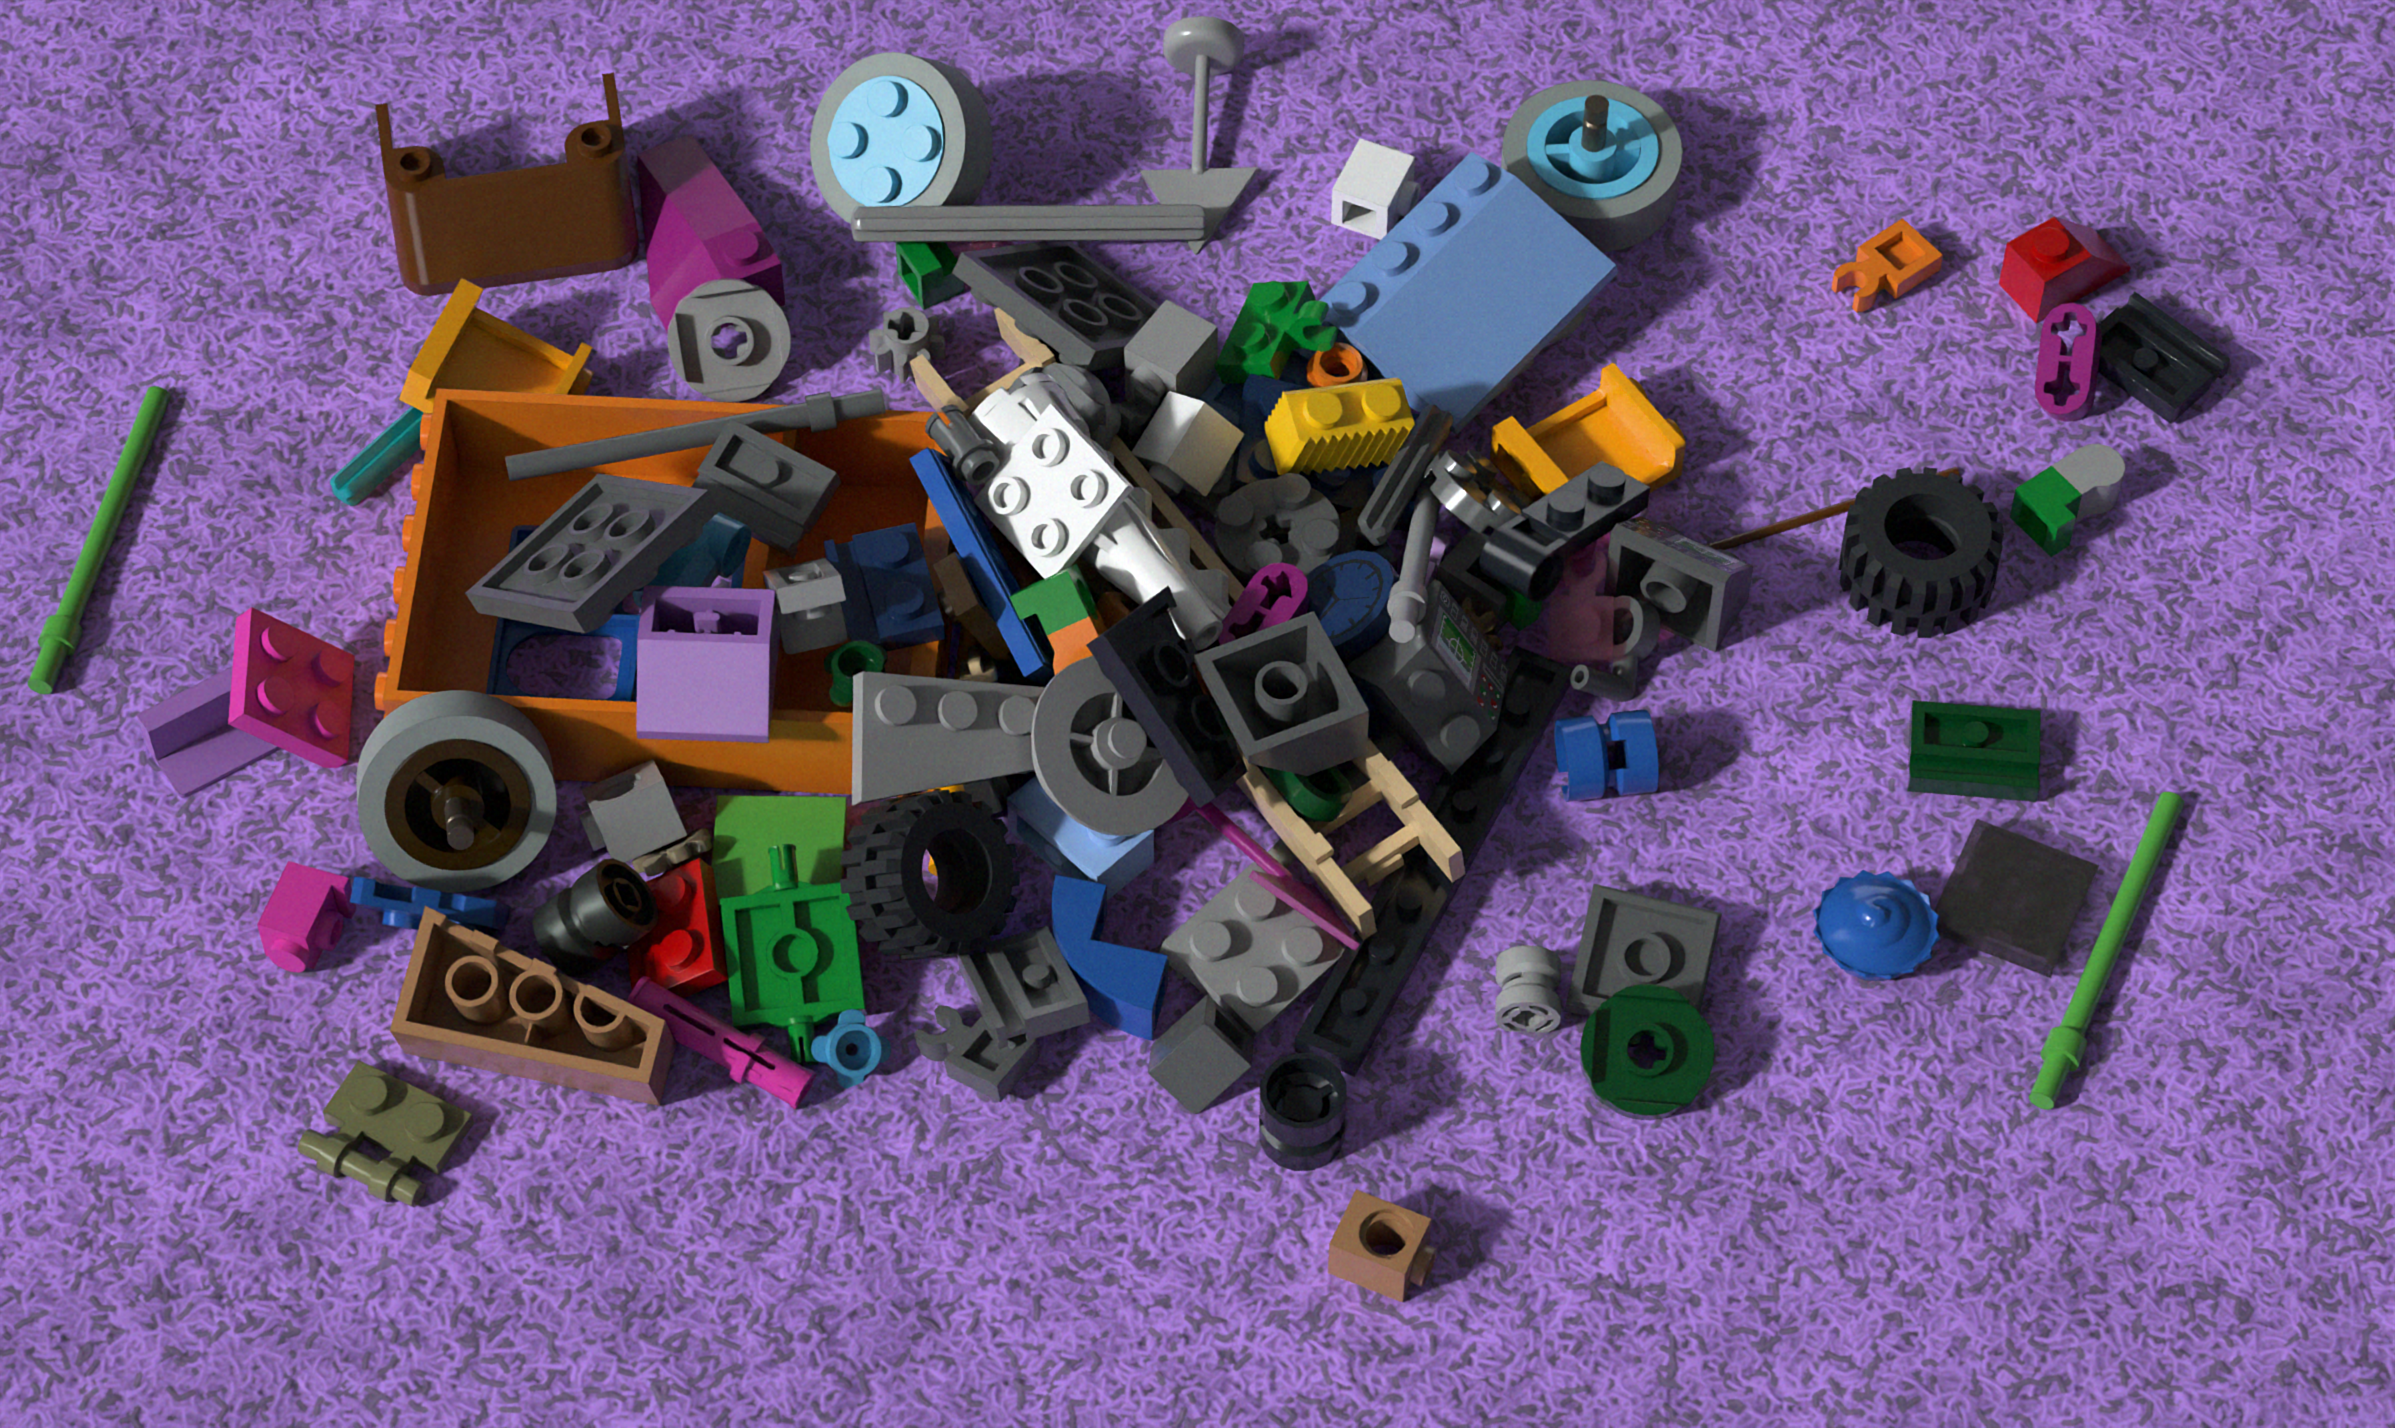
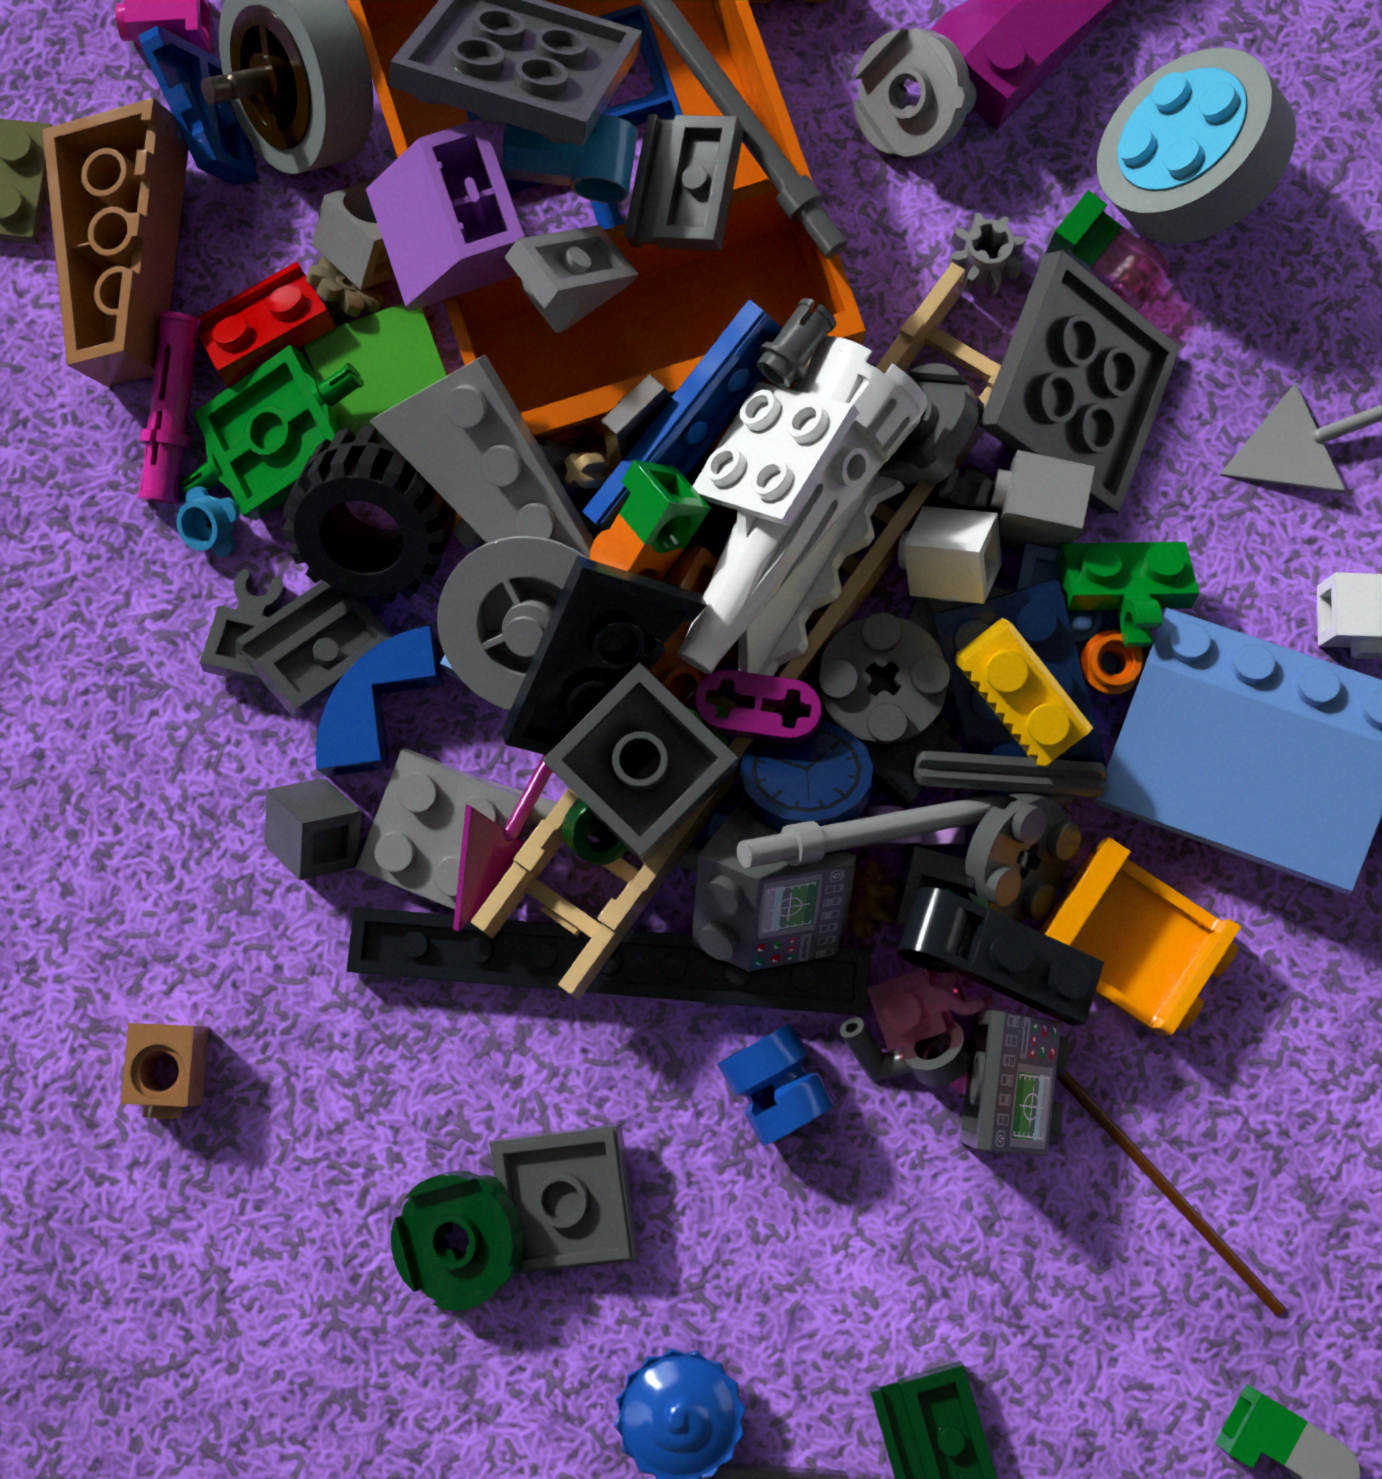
camera: 70 degrees right, 25 degrees up
(594, 917) = (236, 250): pearl dark grey wheel -> none
(850, 660) = (518, 341): dark green plate -> none
(887, 588) = (620, 341): dark blue plate -> none
(1028, 223) = (1161, 302): light grey axle -> none
(1302, 1111) = (268, 944): black wheel -> none
(1528, 985) = (487, 1102): light grey wheel -> none
(1913, 589) = (1199, 1336): black tyre -> none

